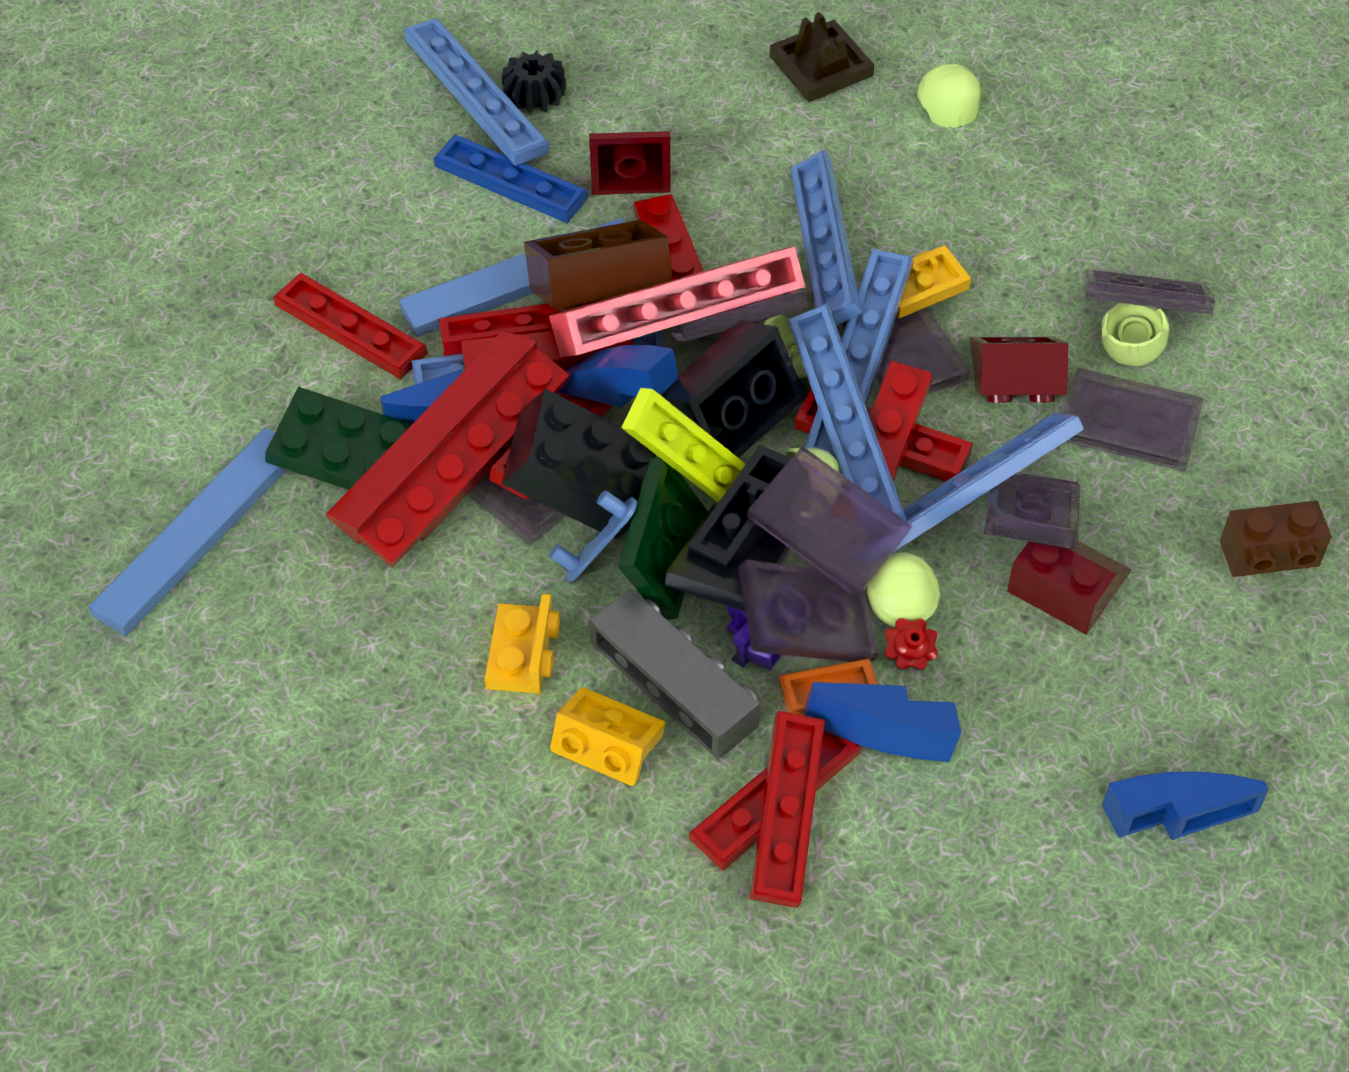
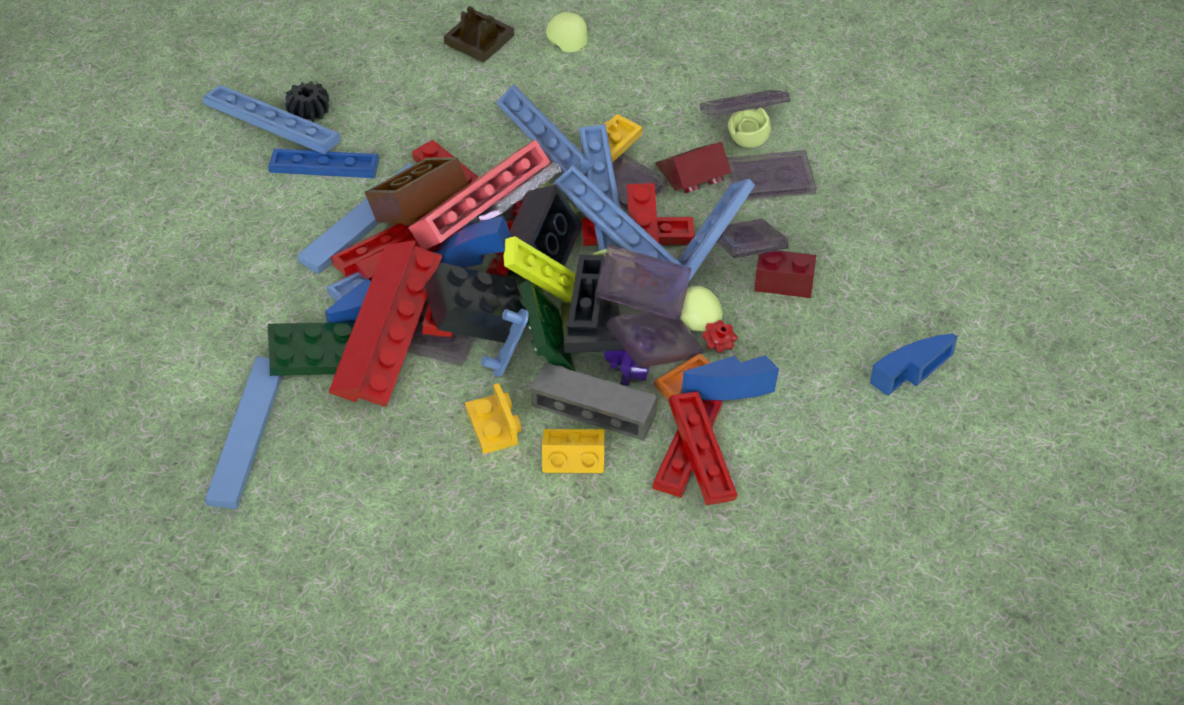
camera: 25 degrees left, 5 degrees down
(350, 325) = (272, 280): red tile -> none
(630, 162) = (398, 128): dark red slope -> none
(1275, 538) = (886, 209): reddish brown brick -> none

